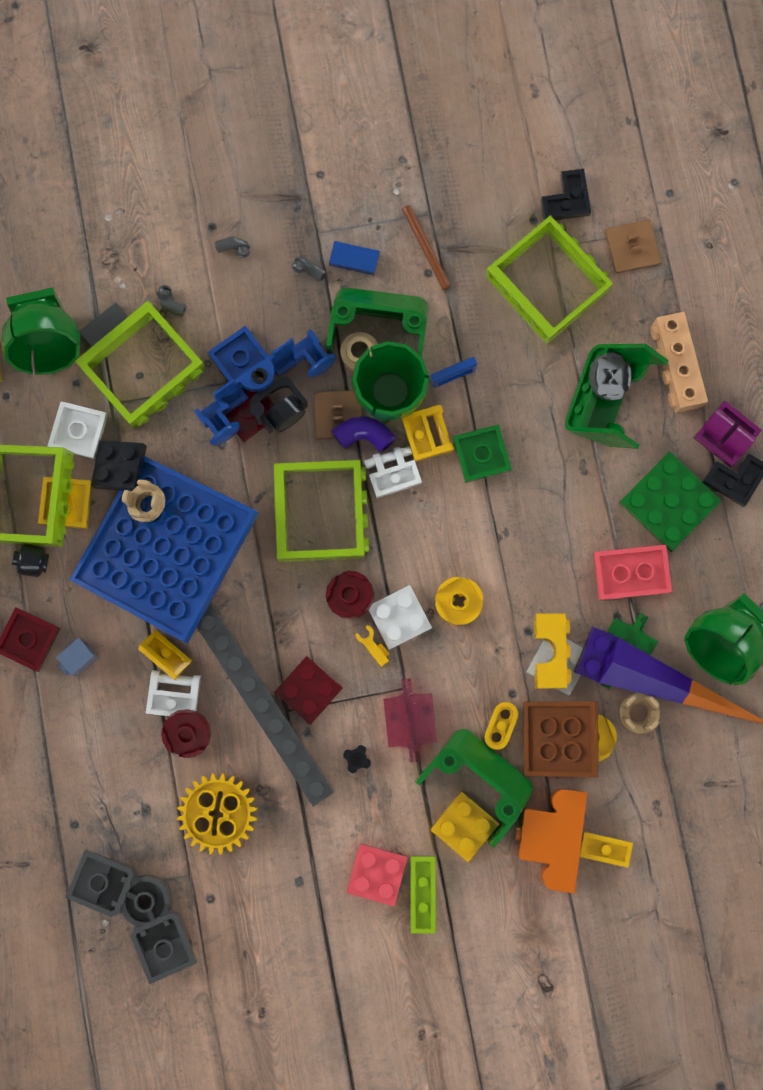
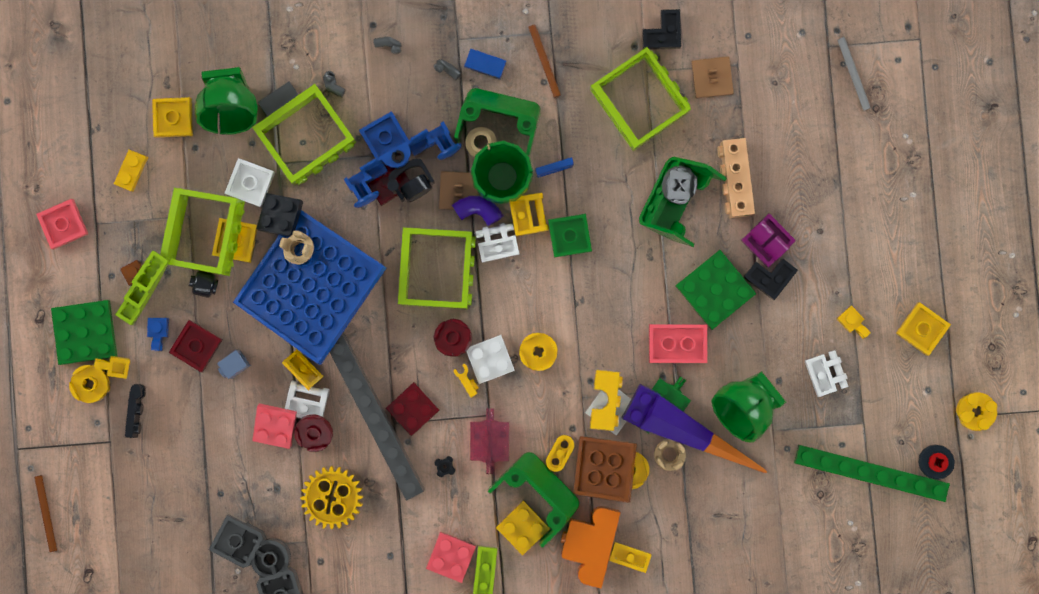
camera: 10 degrees right, 5 degrees up
(135, 729) = (274, 426): none -> coral plate

